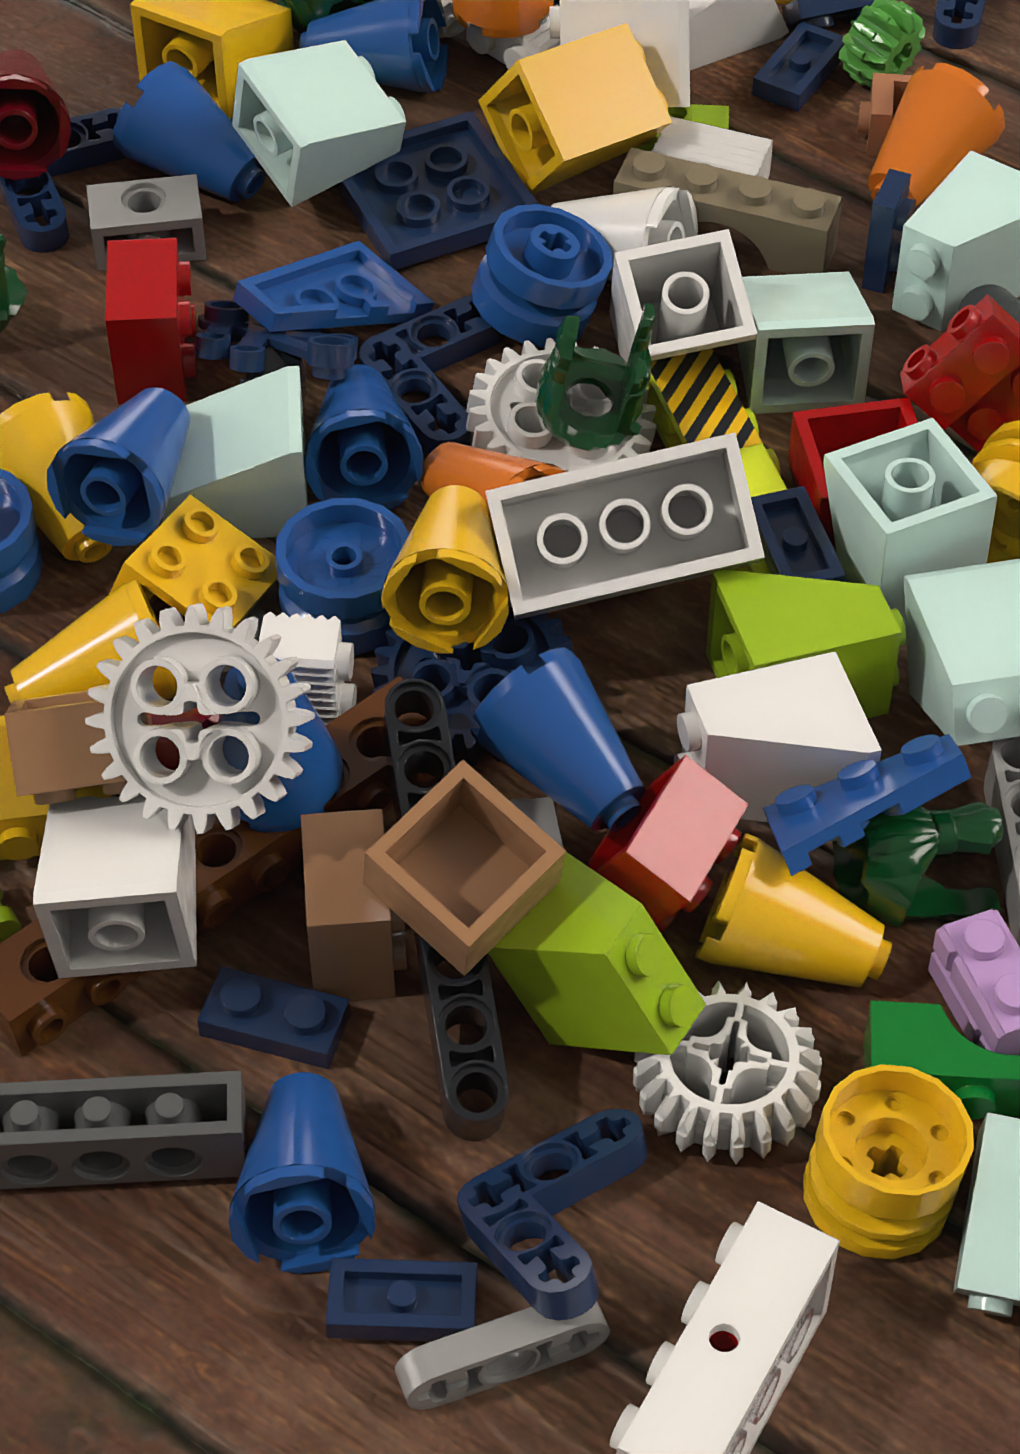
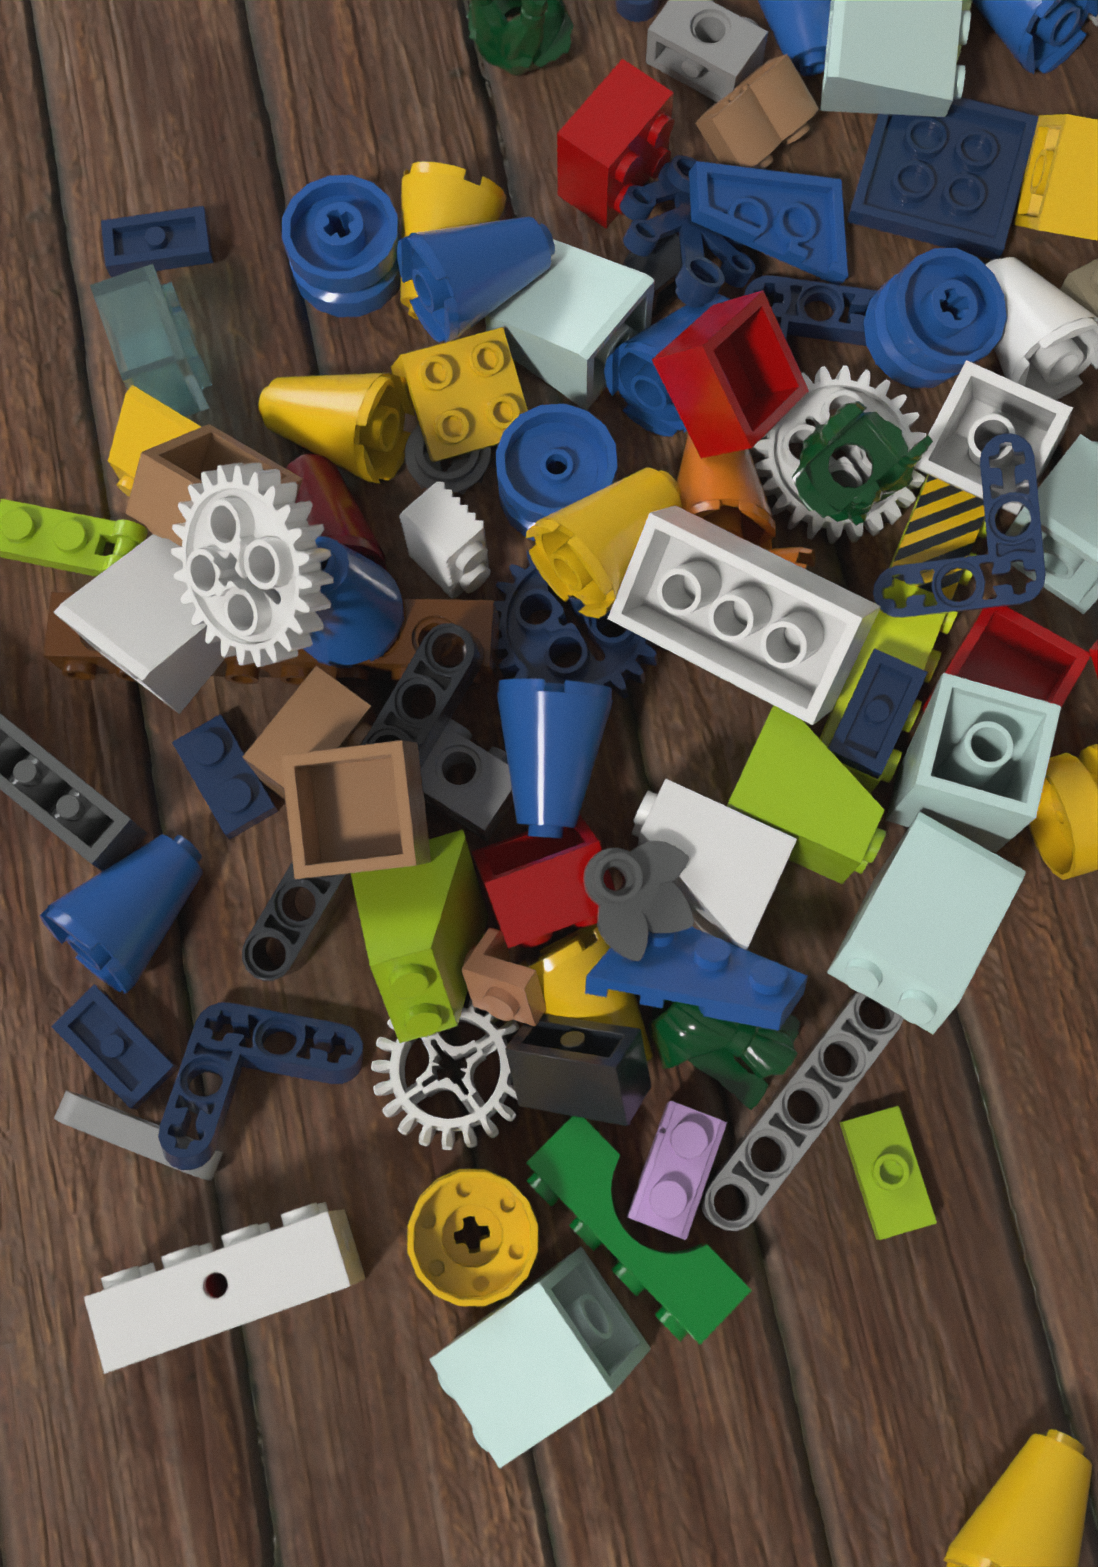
camera: 45 degrees right, 25 degrees up
(244, 232) = (759, 115): none -> medium nougat brick
(435, 387) = (731, 375): none -> red piece
(714, 938) = (501, 986): none -> nougat bracket
(756, 771) = (644, 901): none -> dark grey plate
(771, 363) = (1001, 548): none -> dark blue beam
(842, 953) = (579, 1068): none -> black brick

